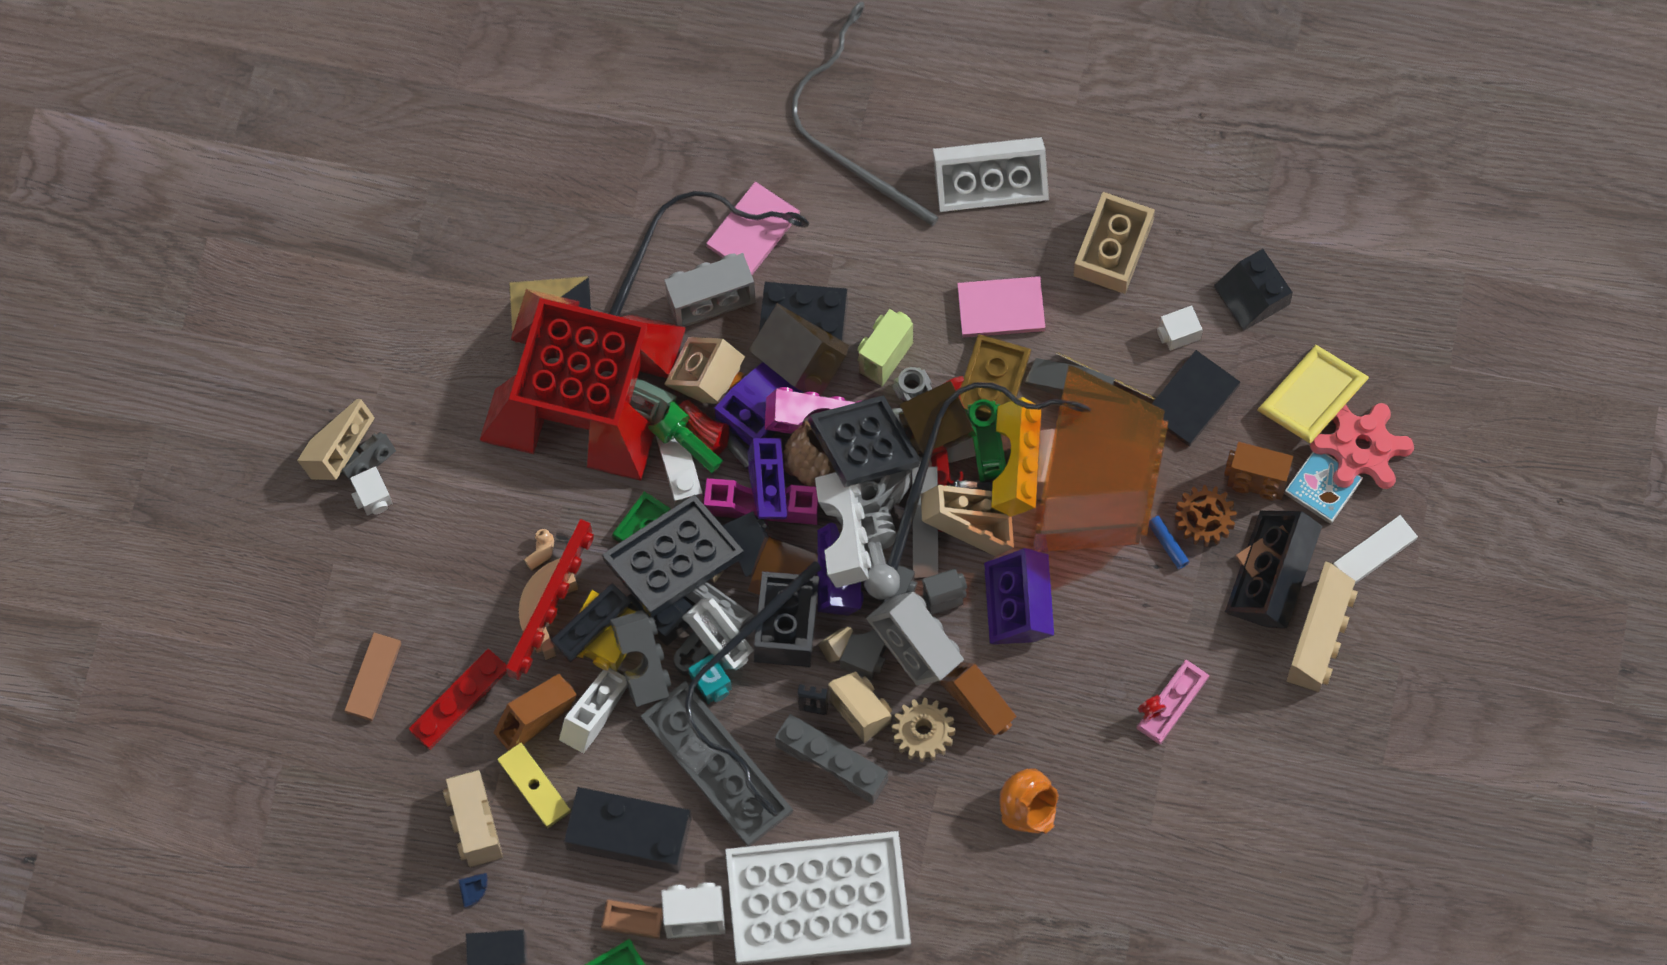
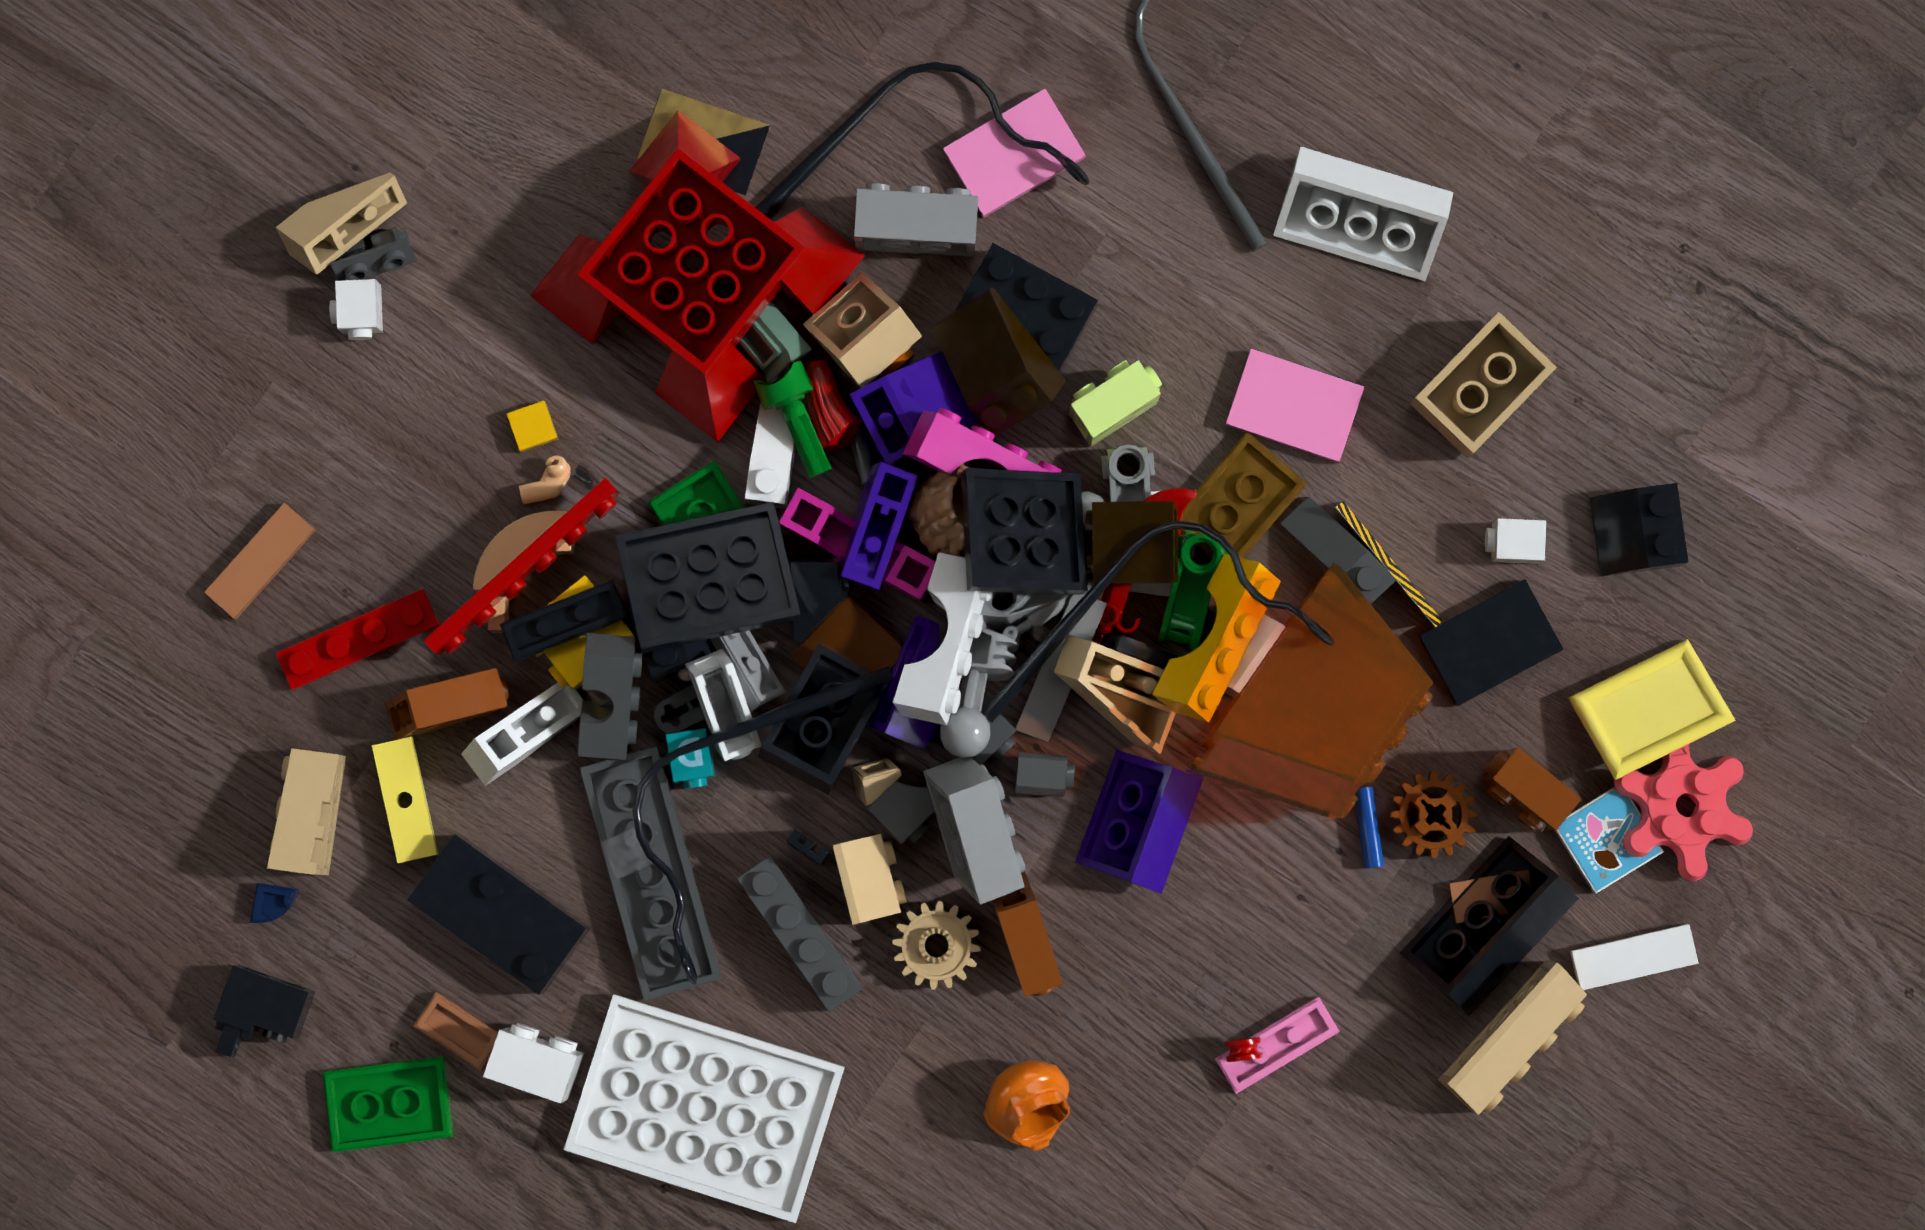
camera: 20 degrees right, 15 degrees up
(516, 519) = (532, 426): none -> yellow tile

